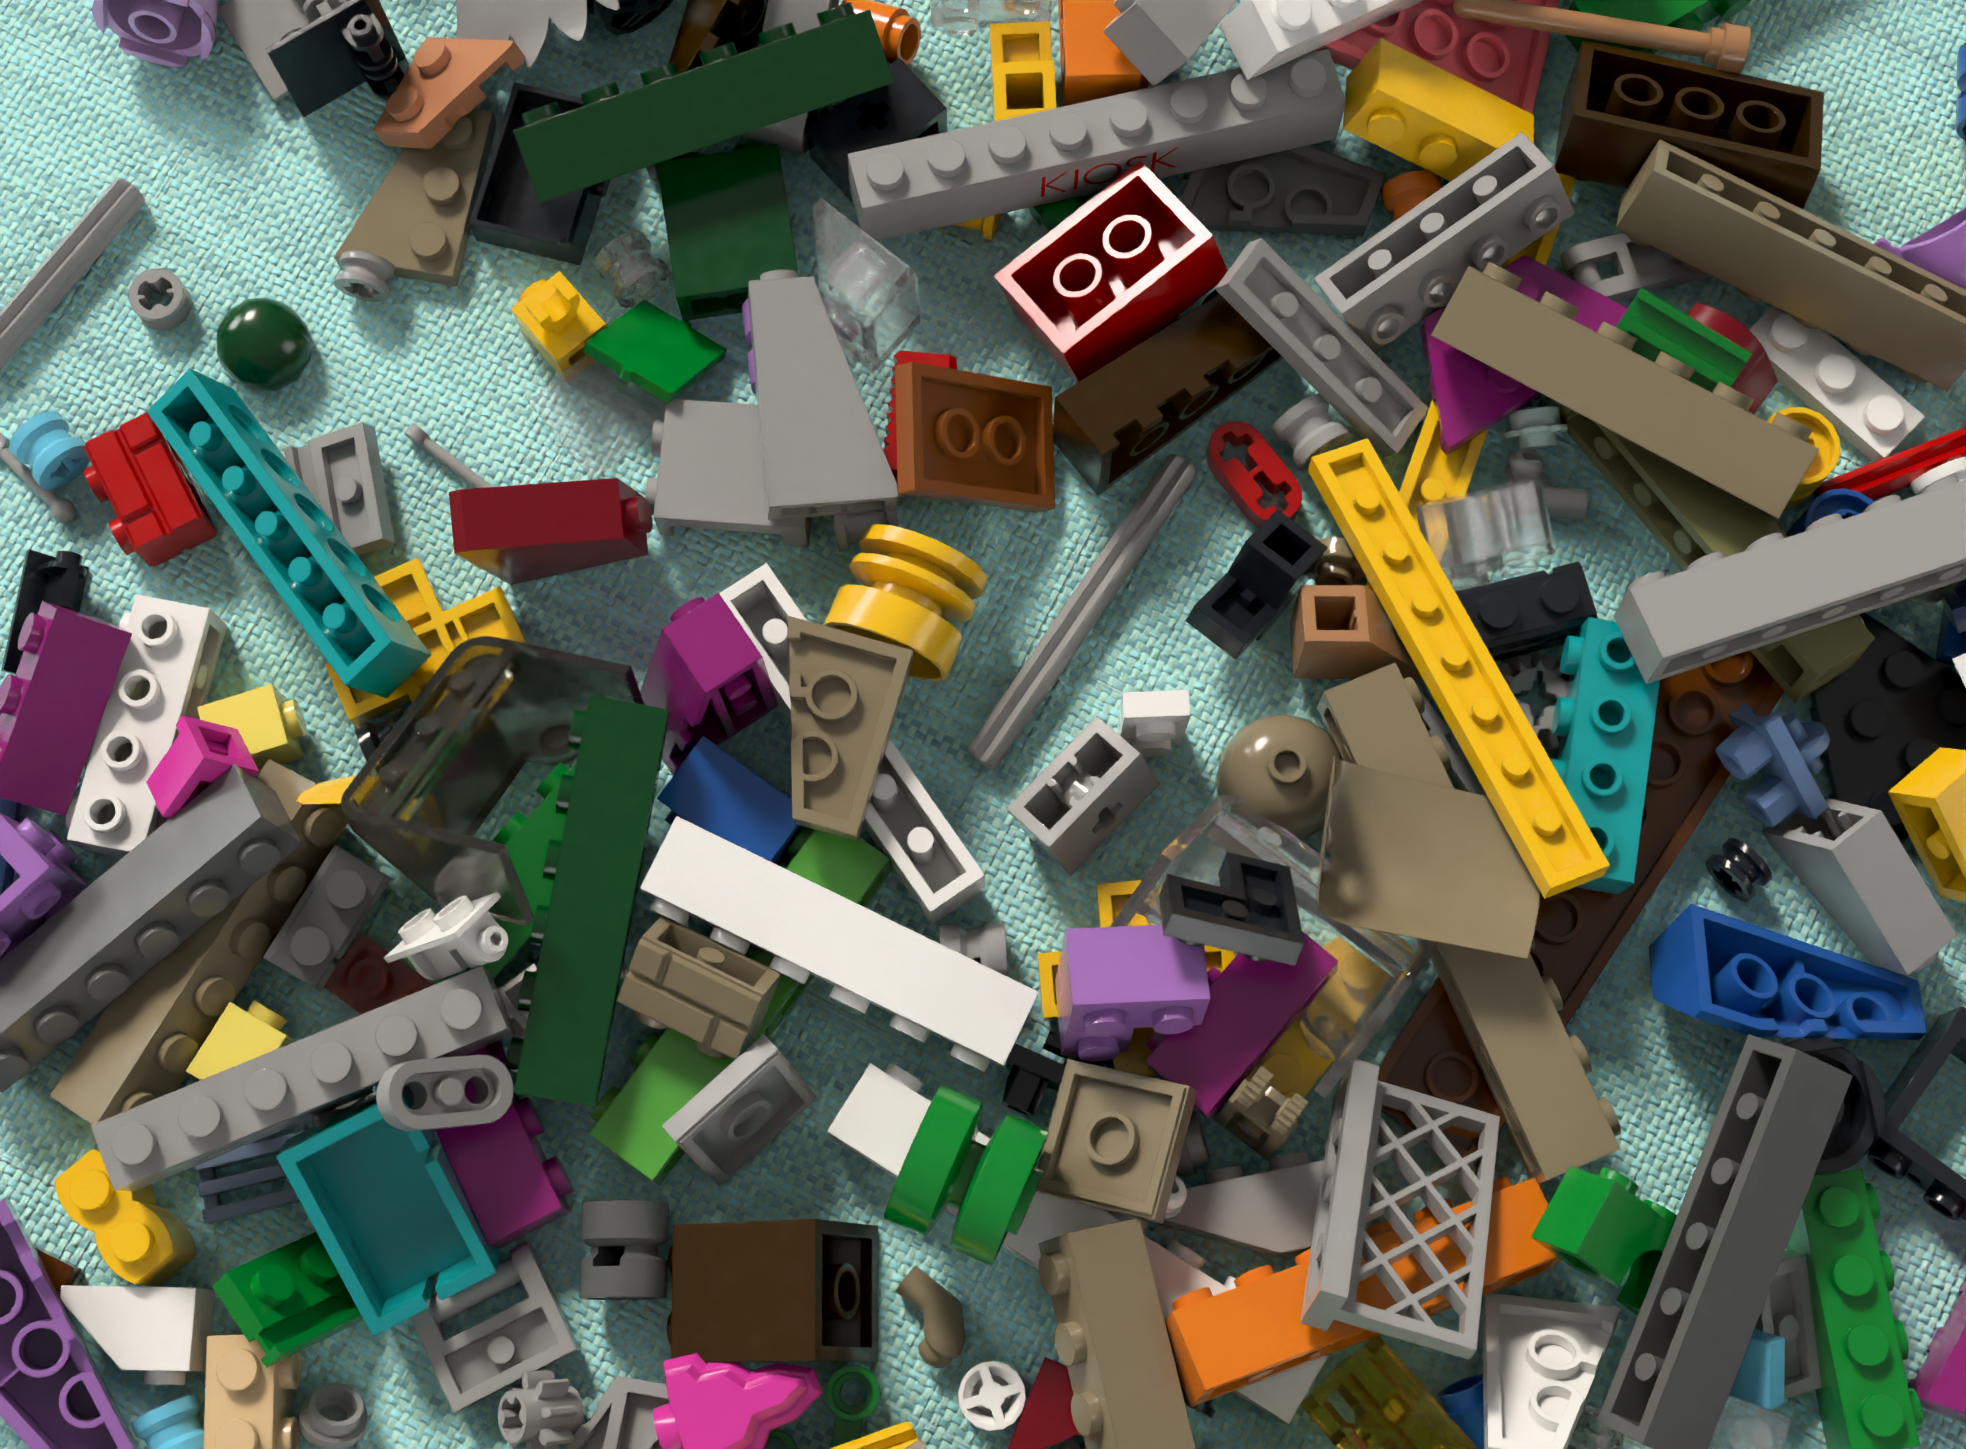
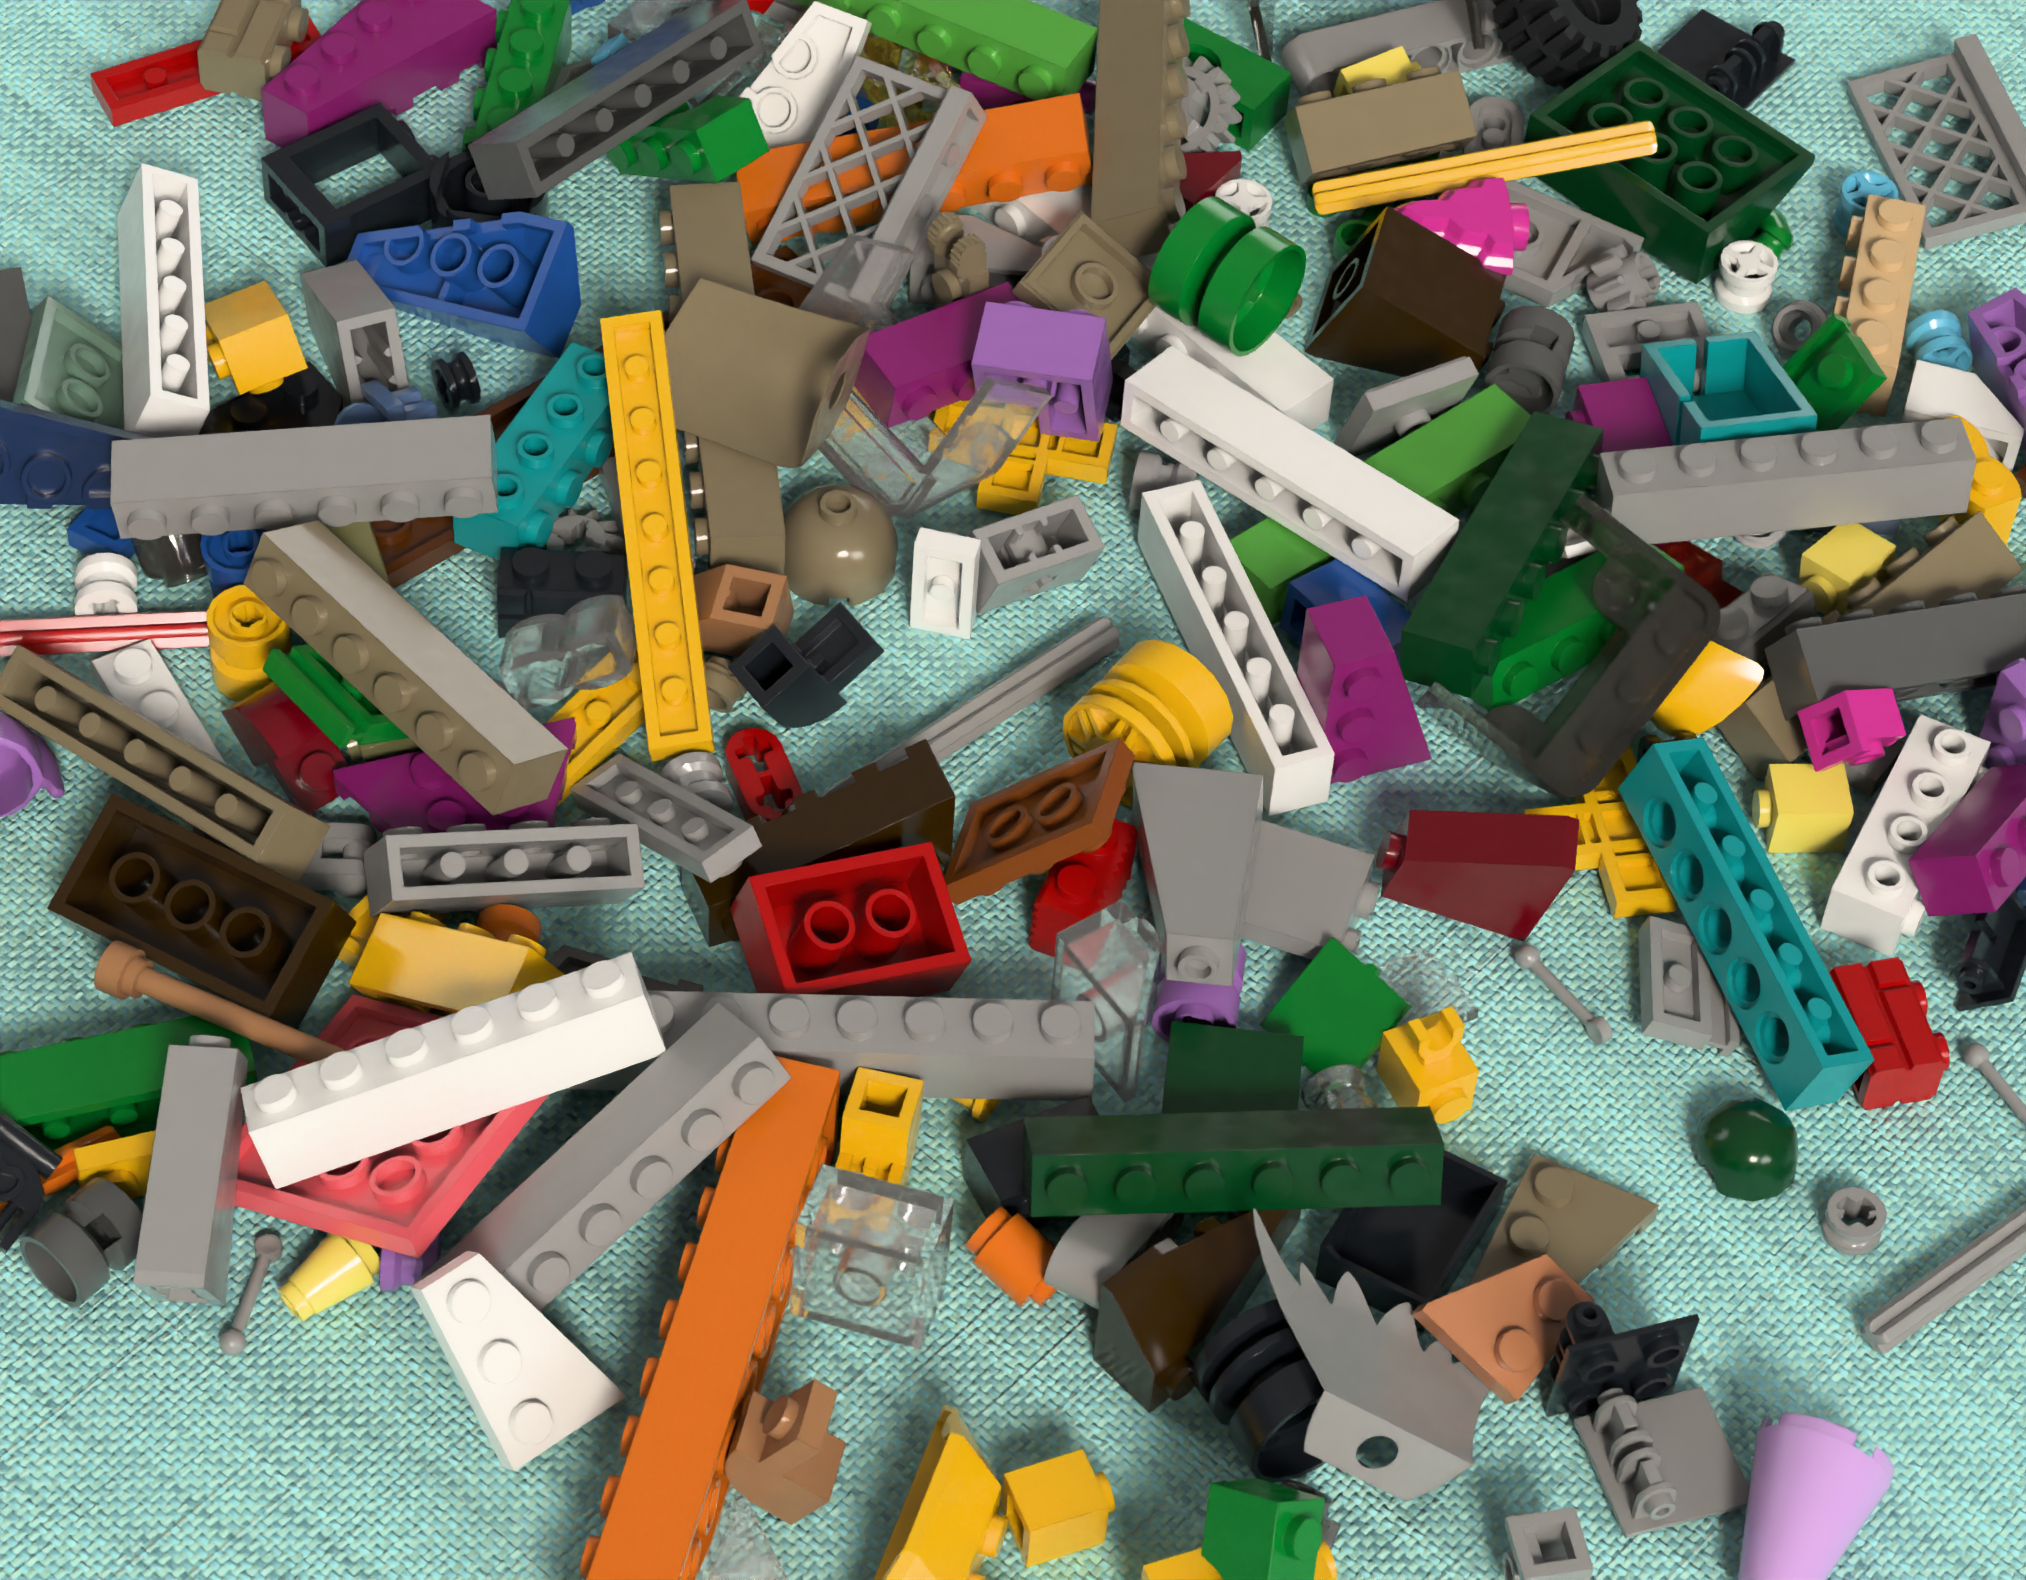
camera: 170 degrees left, 25 degrees down
(49, 450) = (1983, 1094): medium azure wheel -> none
(364, 276) = (1630, 1169): light grey bush -> none
(441, 1094) = (1664, 417): light grey plate -> none
(452, 939) = (1643, 513): white hinge -> none
(698, 989) = (1423, 458): dark tan brick -> none
(841, 720) = (1243, 609): dark tan wing -> none
(1246, 914) = (923, 348): black plate -> none

